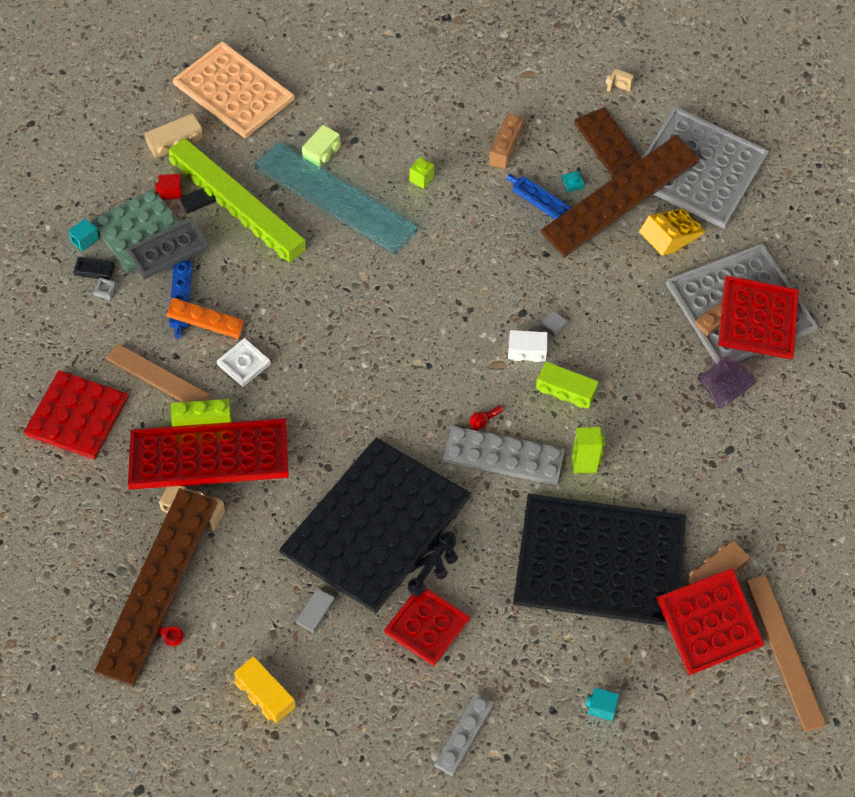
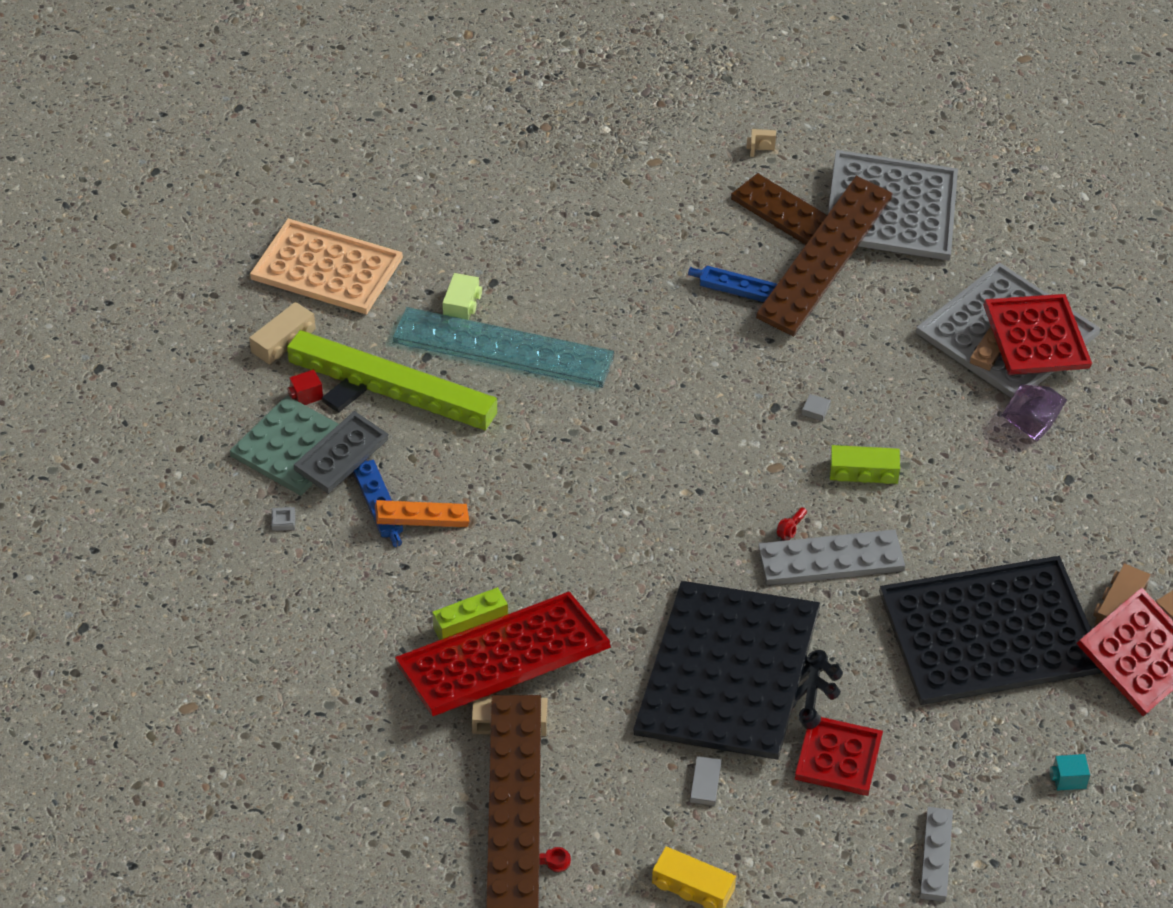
camera: 20 degrees left, 10 degrees down
(76, 414) = (319, 662): red plate -> none
(83, 234) = (229, 467): teal brick -> none
(93, 268) = (258, 501): black tile -> none
(155, 375) = (391, 592): medium nougat tile -> none
(243, 362) = (489, 548): white plate -> none
(421, 172) = (591, 293): lime brick -> none
(506, 141) = (669, 235): medium nougat brick -> none
(527, 345) = (800, 437): white brick -> none
(573, 181) = (761, 257): teal plate -> none
(587, 450) = (926, 518): lime brick -> none
(671, 230) = (894, 277): yellow slope -> none

